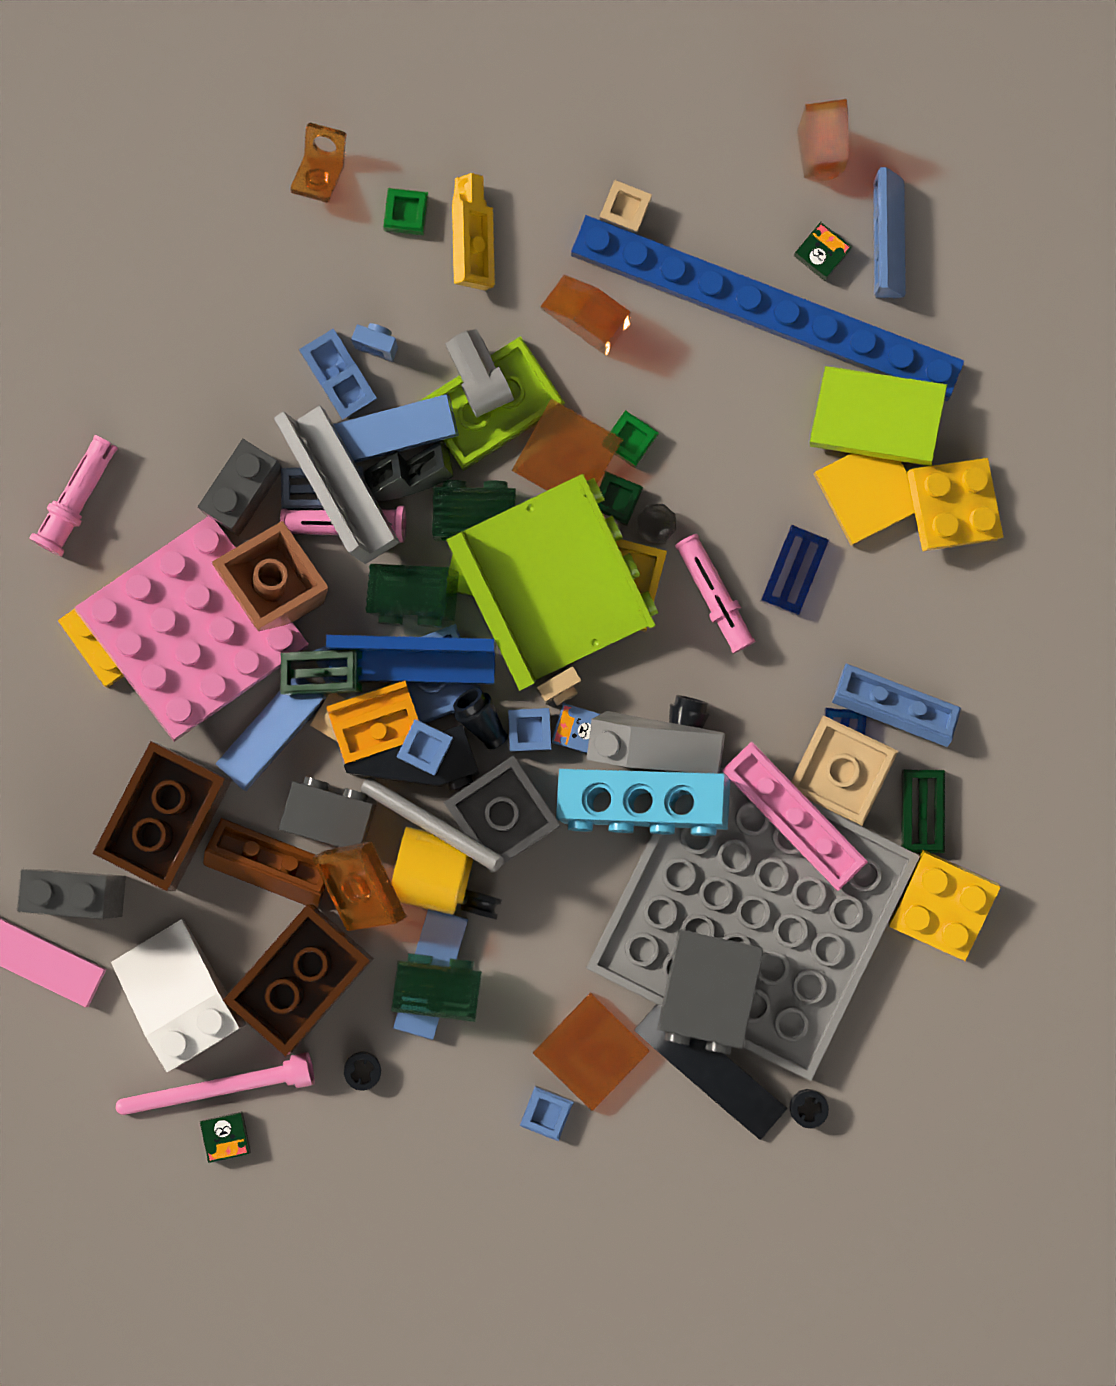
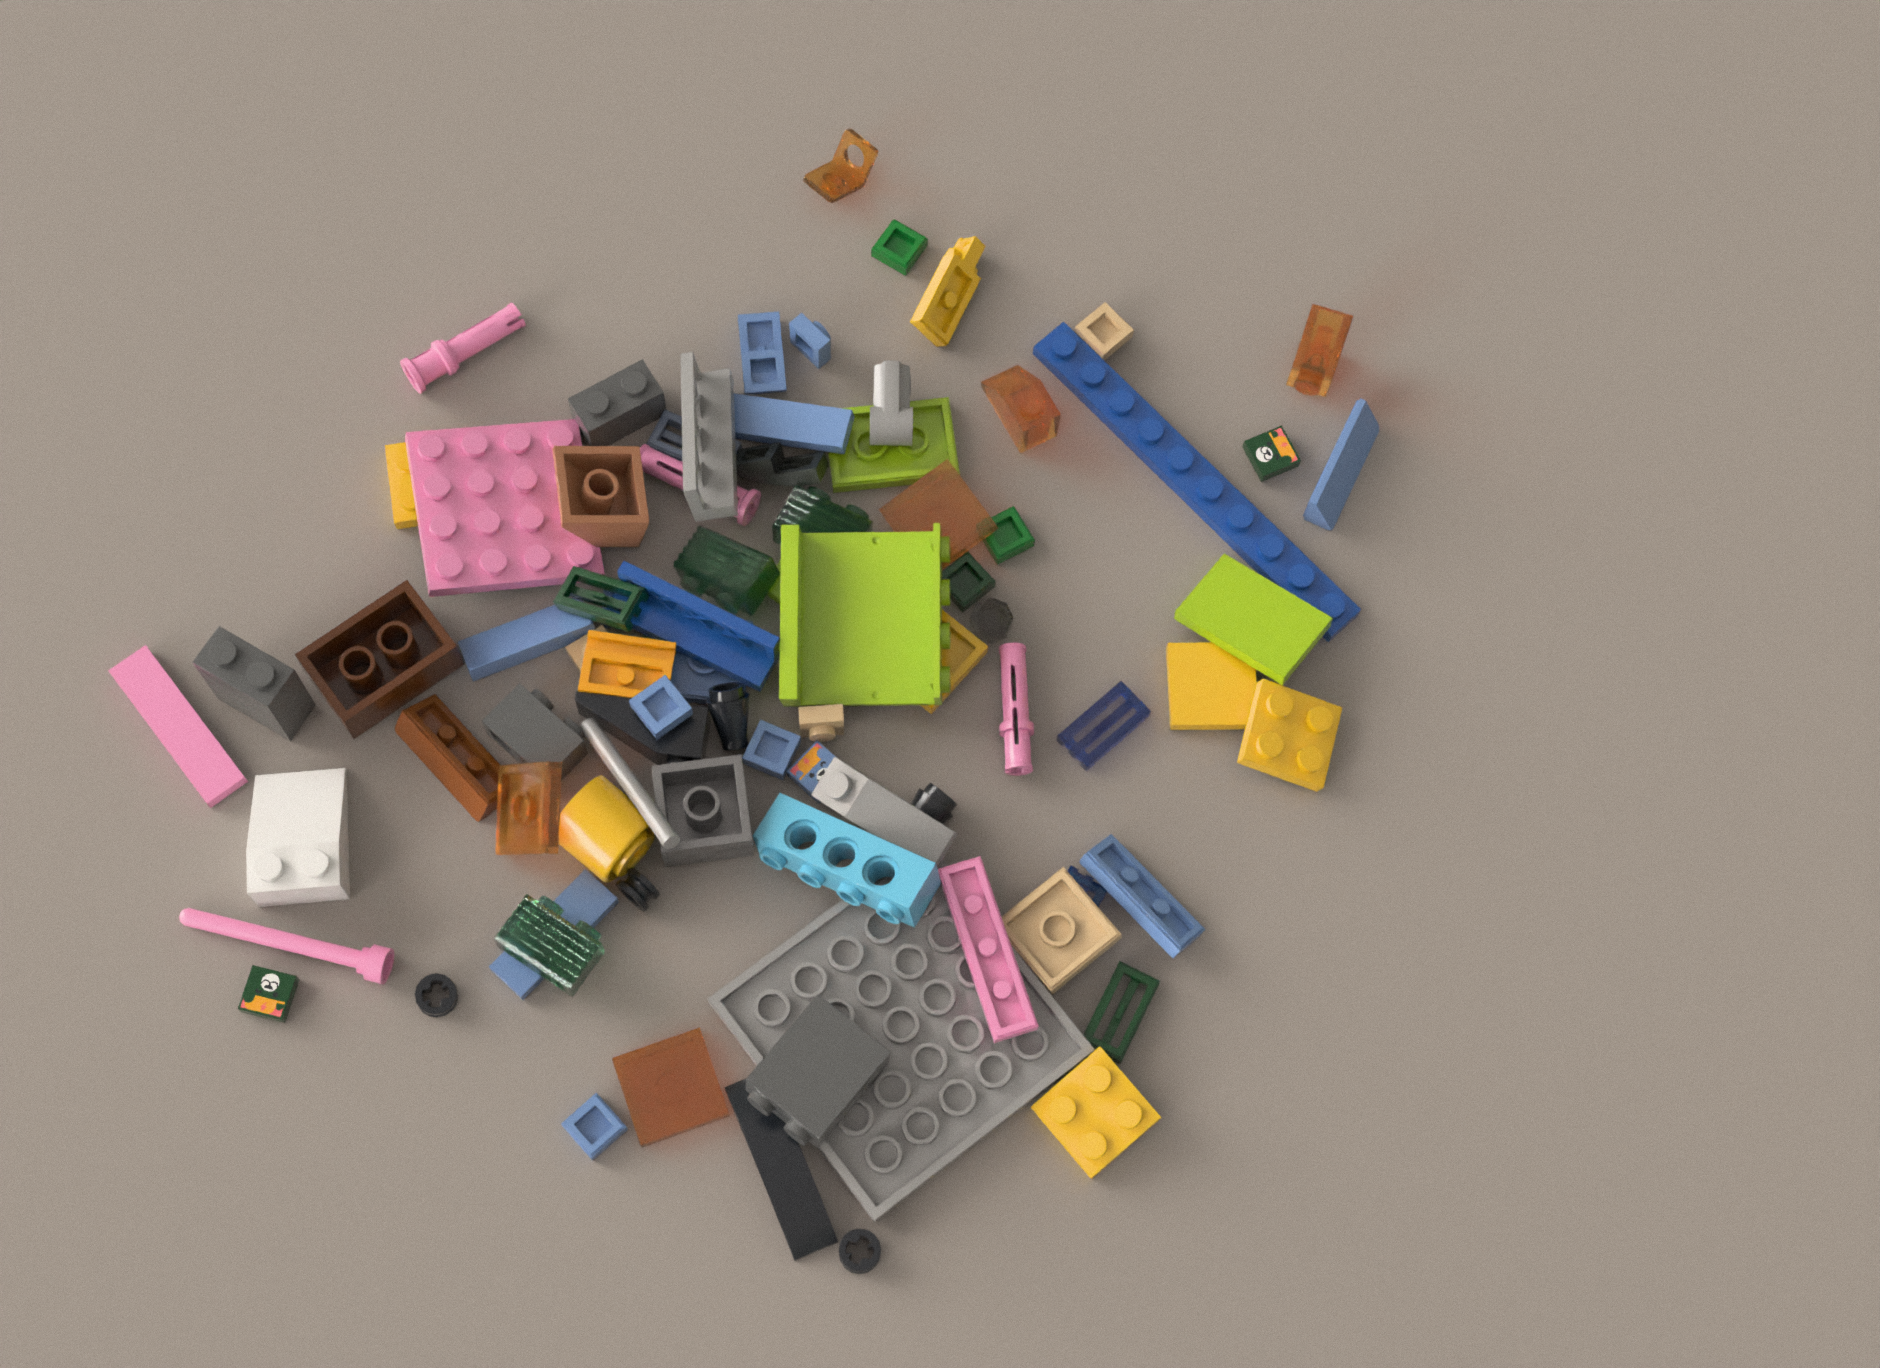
camera: 20 degrees right, 15 degrees down
(298, 979) = (422, 871): reddish brown brick -> none

